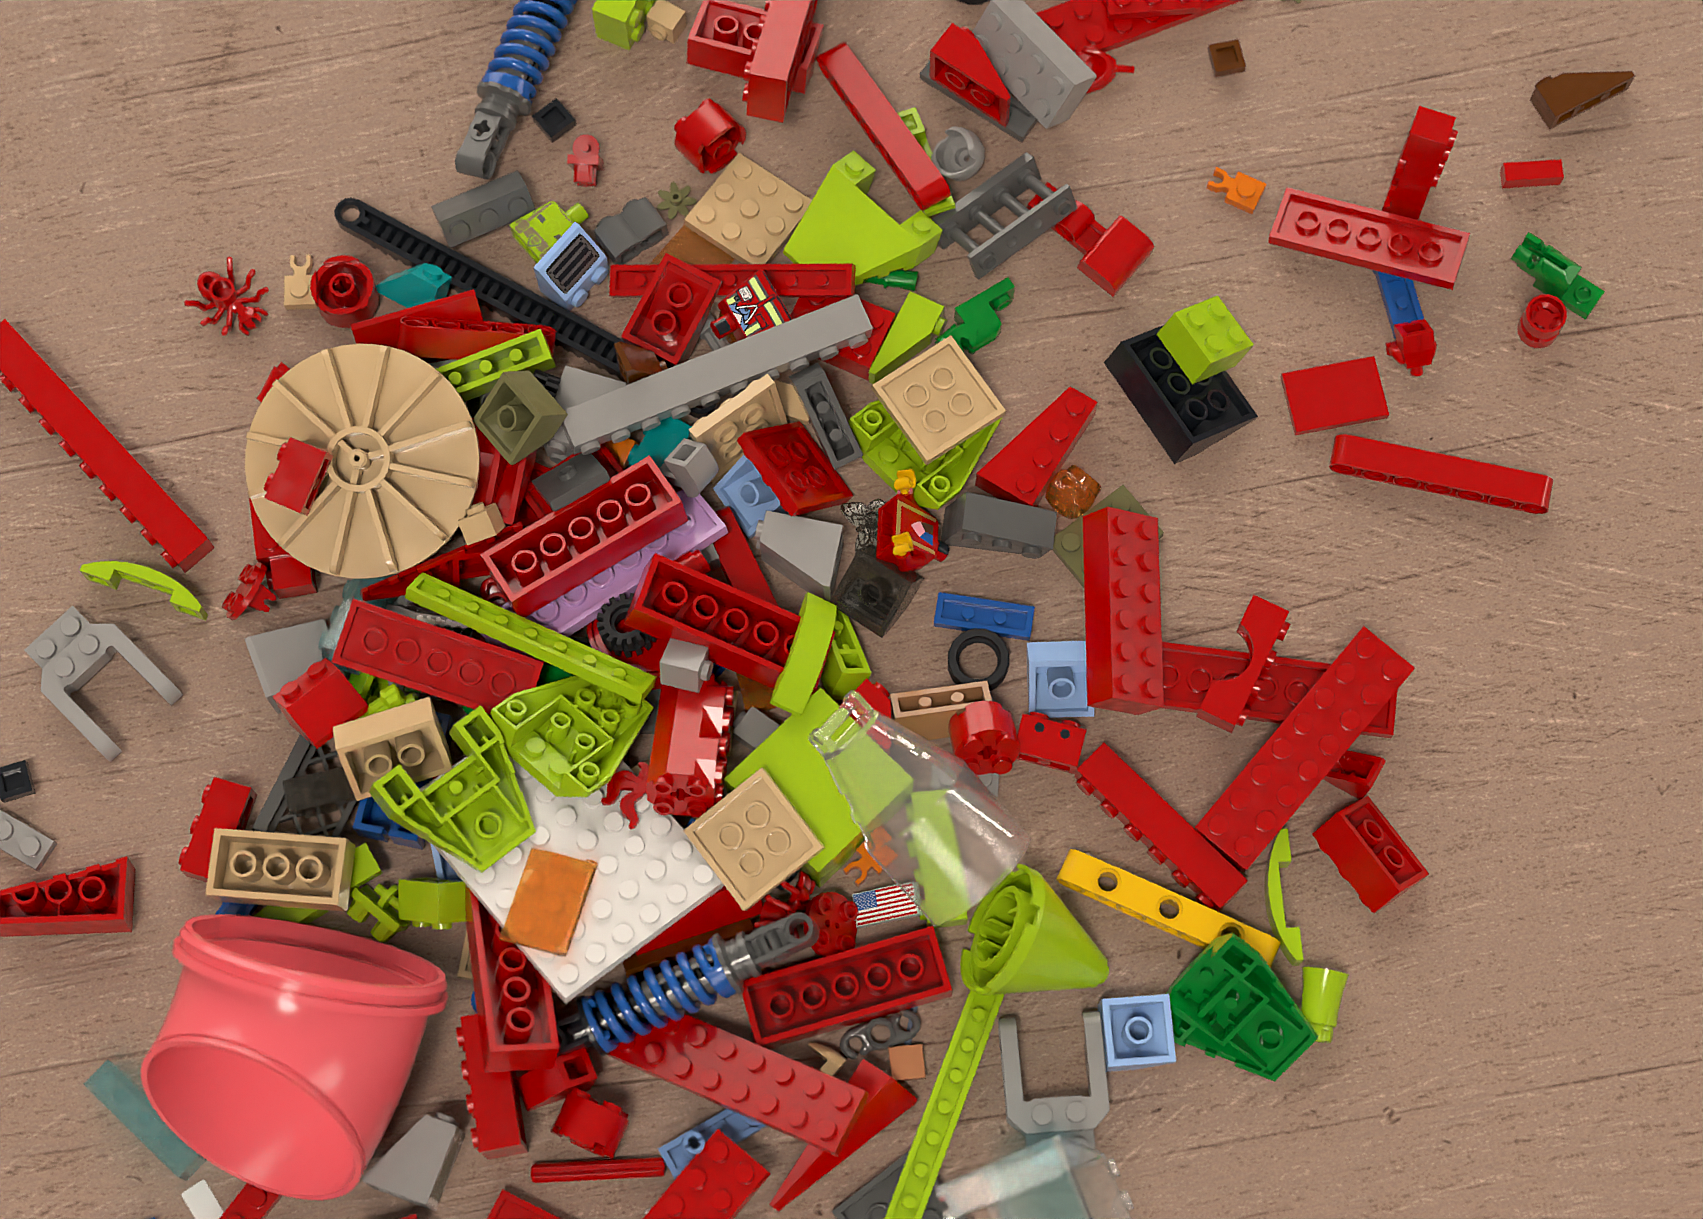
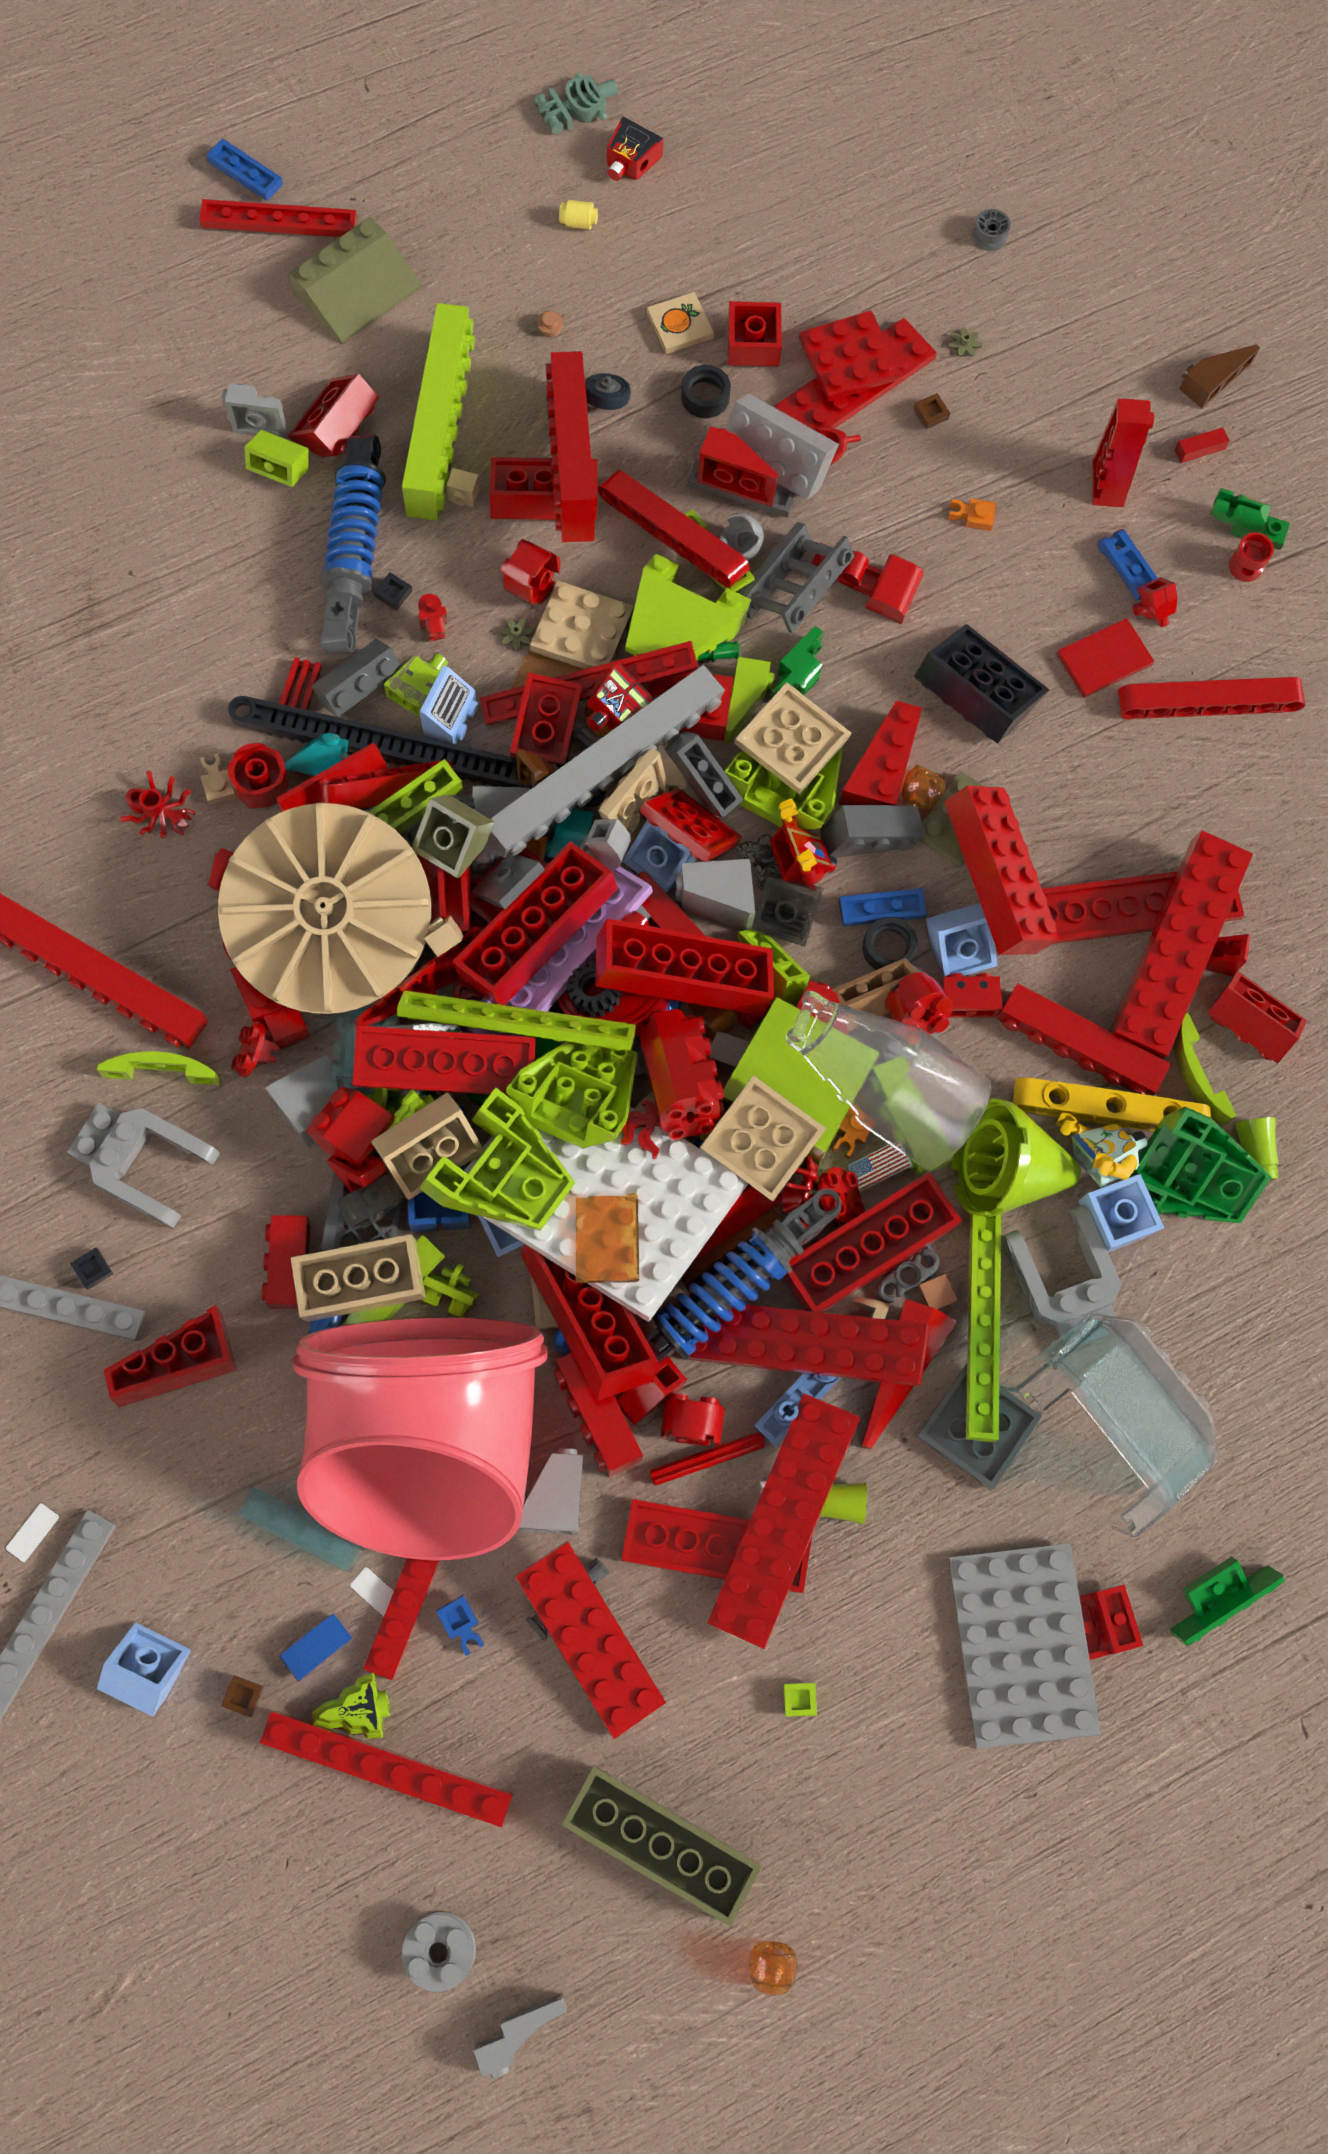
camera: 25 degrees left, 0 degrees up
(297, 476) = (275, 932): red brick -> none
(312, 759) = (356, 1175): none -> red slope
(425, 176) = (306, 666): none -> red tile
(432, 902) = (497, 1269): lime brick -> none
(630, 231) = (488, 665): dark grey brick -> none
(685, 665) = (659, 1008): light grey brick -> none
(806, 655) = (758, 974): lime slope -> none
(1140, 956) = (1103, 1151): none -> torso
(1205, 339) = (991, 636): lime brick -> none
(1226, 699) = (1114, 858): red arch -> none
(1369, 238) = (1095, 524): red plate -> none

